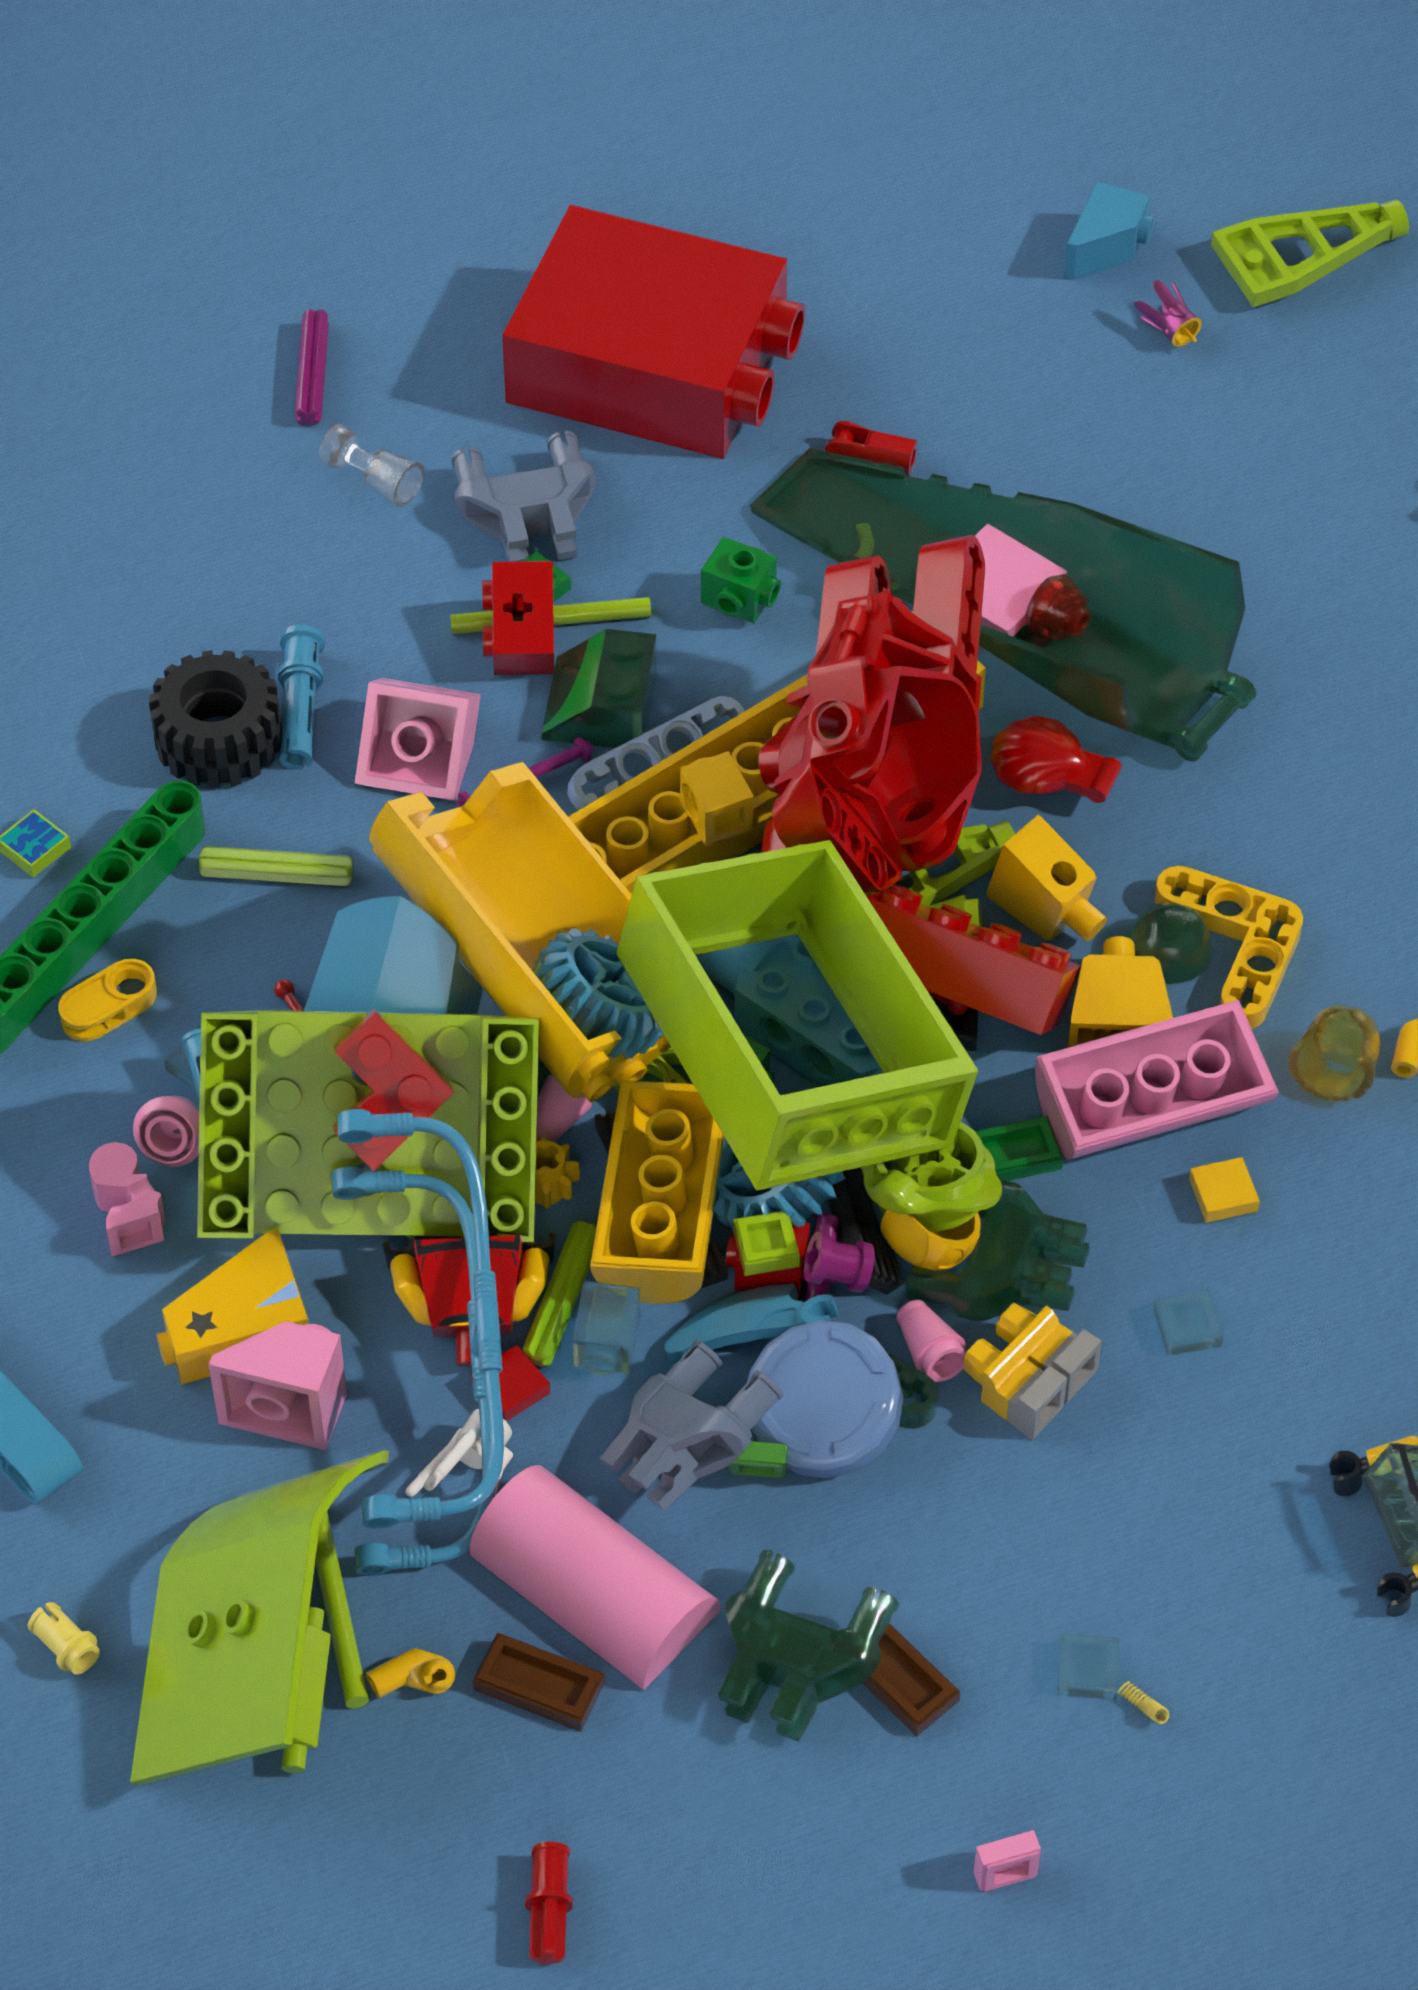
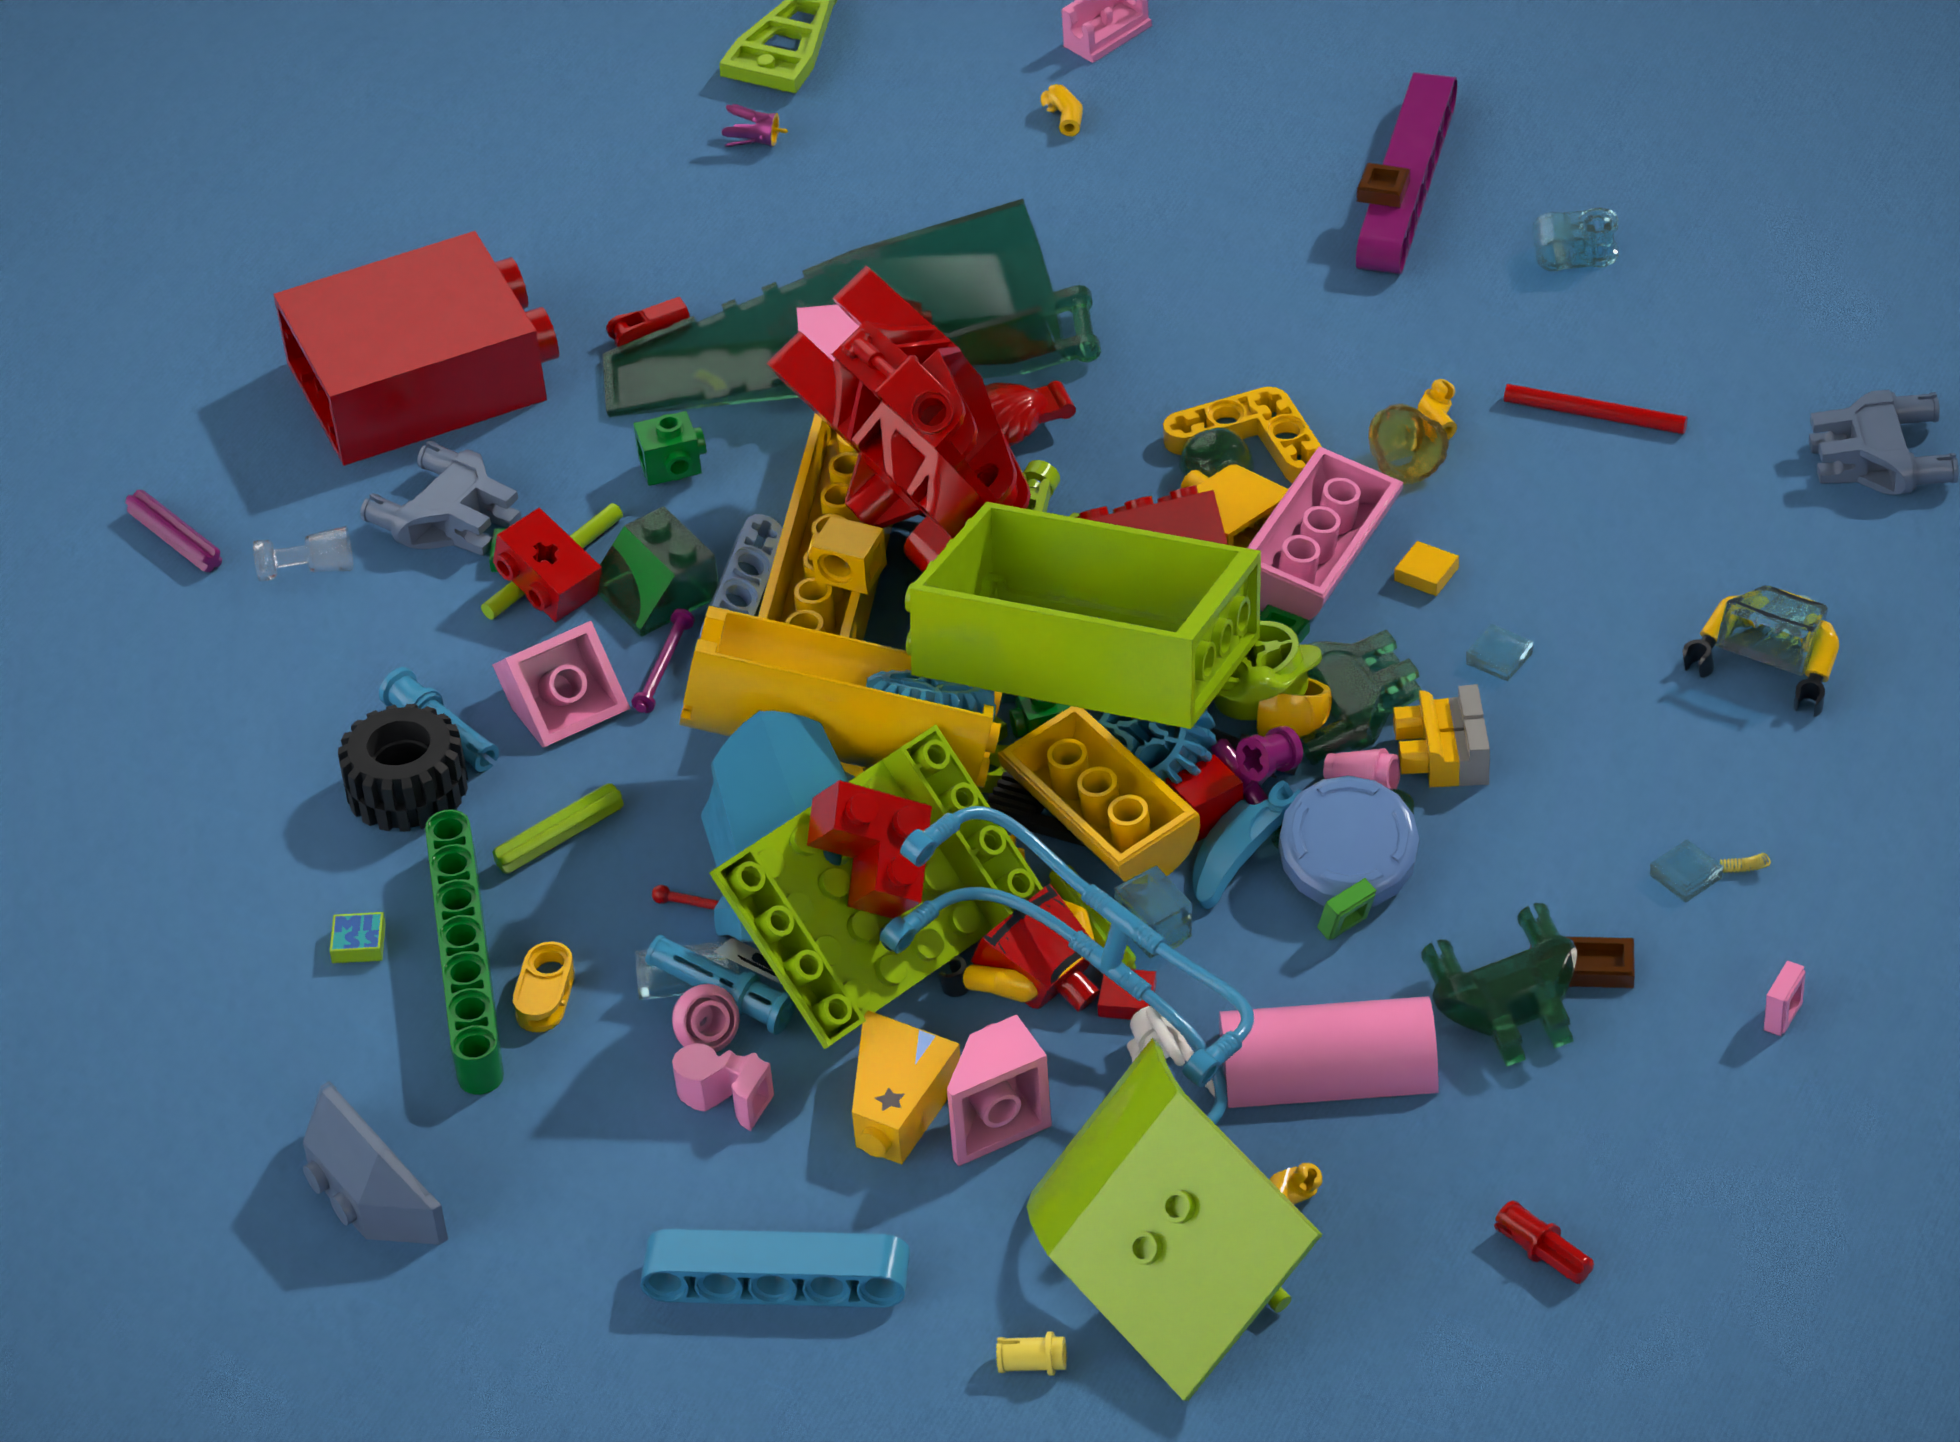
camera: 40 degrees left, 10 degrees down
(539, 1681) = (1370, 1137): reddish brown tile -> none
(681, 1434) = (1291, 920): sand blue connector -> none
(766, 1243) = (1205, 780): lime tile -> none
(1045, 883) = (1106, 471): yellow torso -> none
(1108, 230) = (645, 103): dark azure slope -> none

